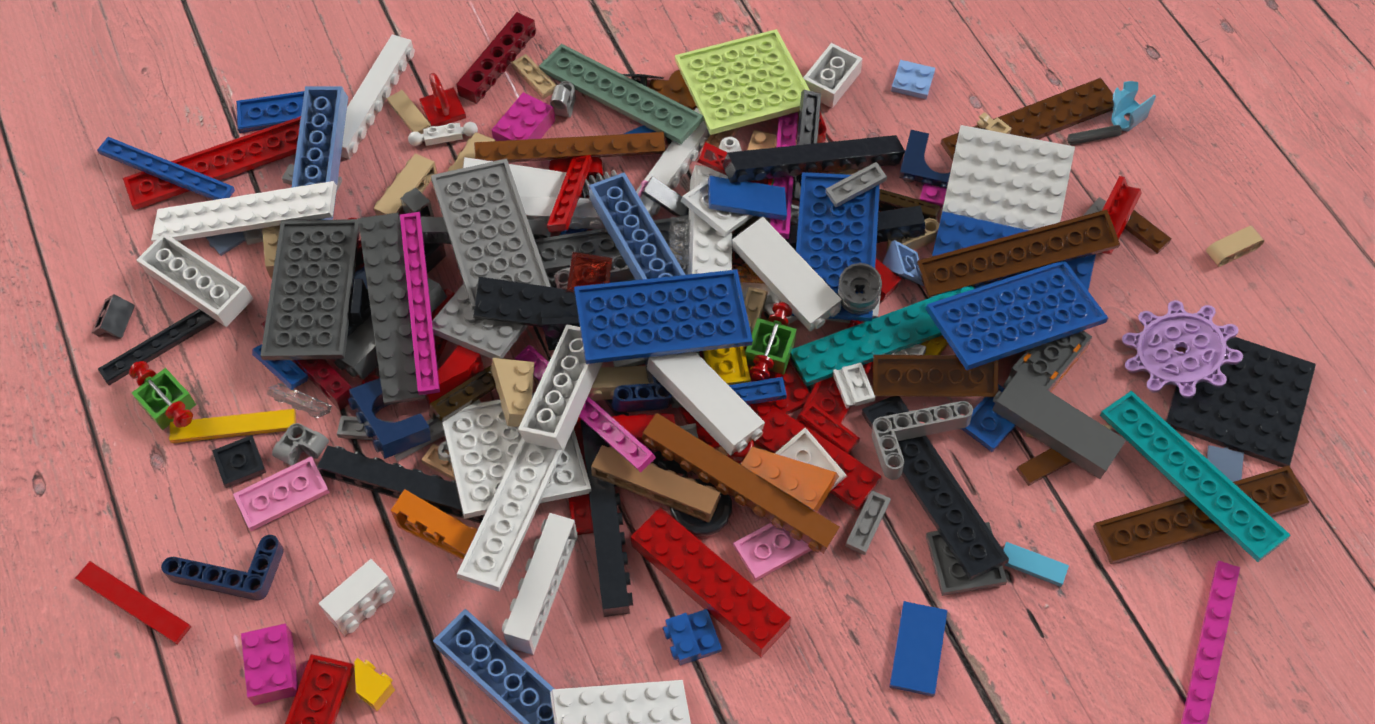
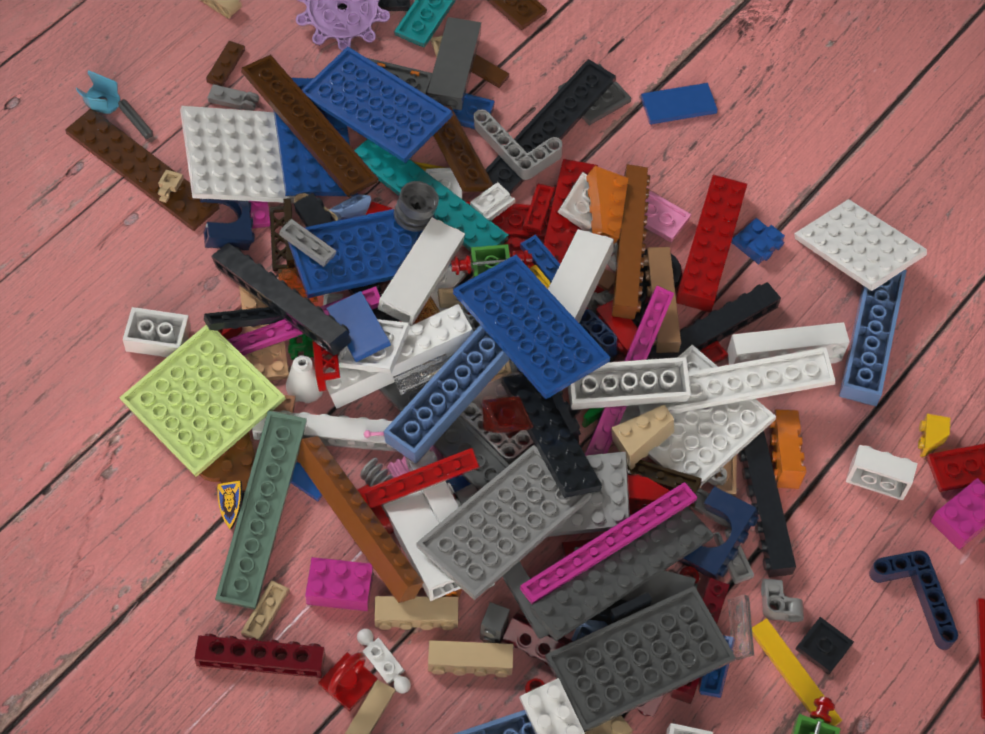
camera: 120 degrees left, 0 degrees up
(281, 493) = (830, 592): bright pink plate -> none
(563, 99) = (294, 560): light grey piece -> none
(665, 197) = (373, 410): tile -> none
(868, 522) = (610, 161): light grey plate -> none
(913, 79) = (126, 273): light blue plate -> none
(1035, 564) = (572, 53): medium azure tile -> none
(1121, 205) = (221, 76): red fence -> none

